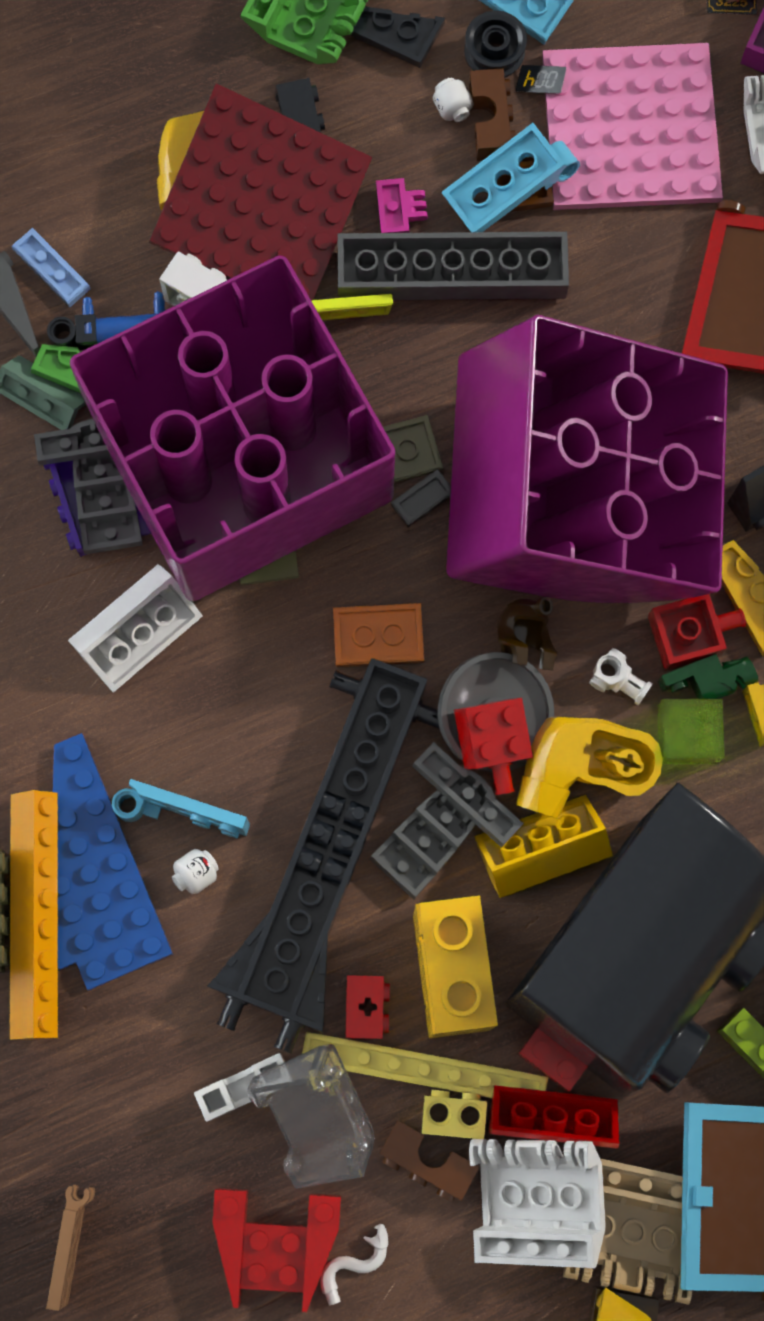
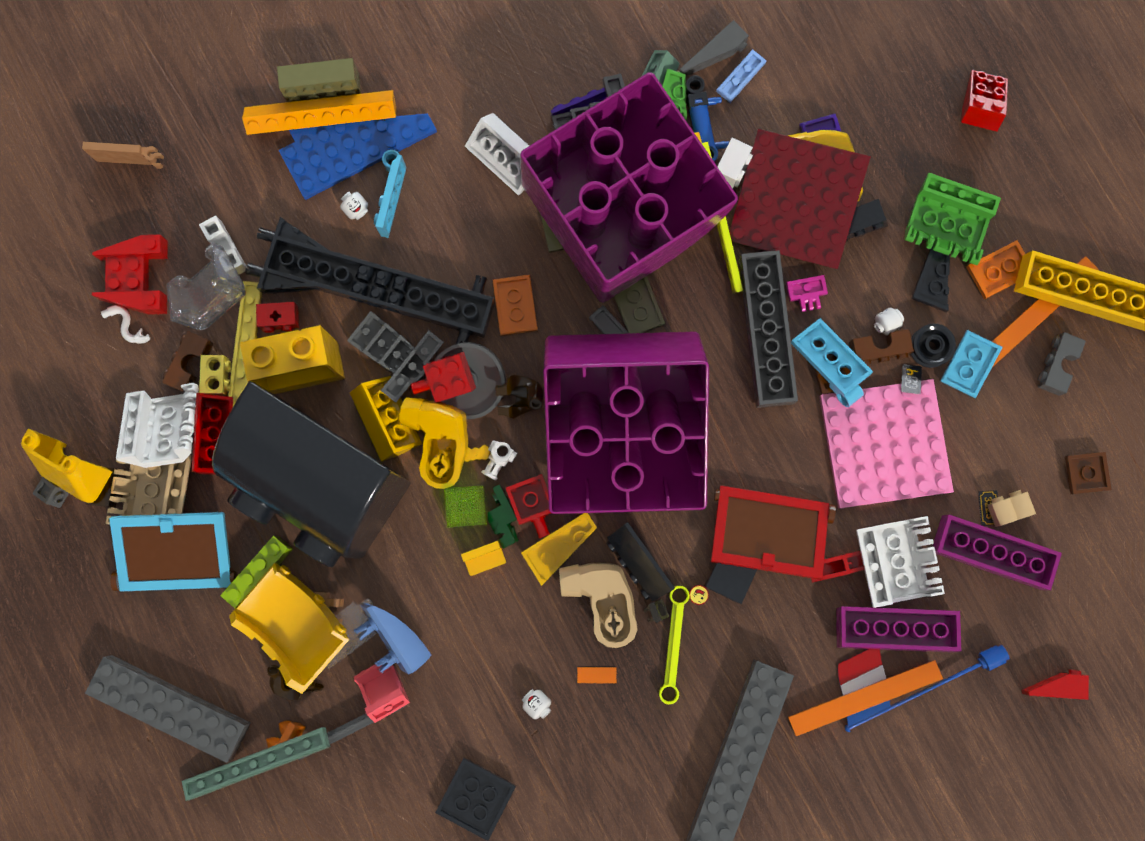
camera: 85 degrees right, 5 degrees up
(145, 162) = (824, 123): none -> dark purple tile
(607, 706) = (479, 454): none -> yellow piece

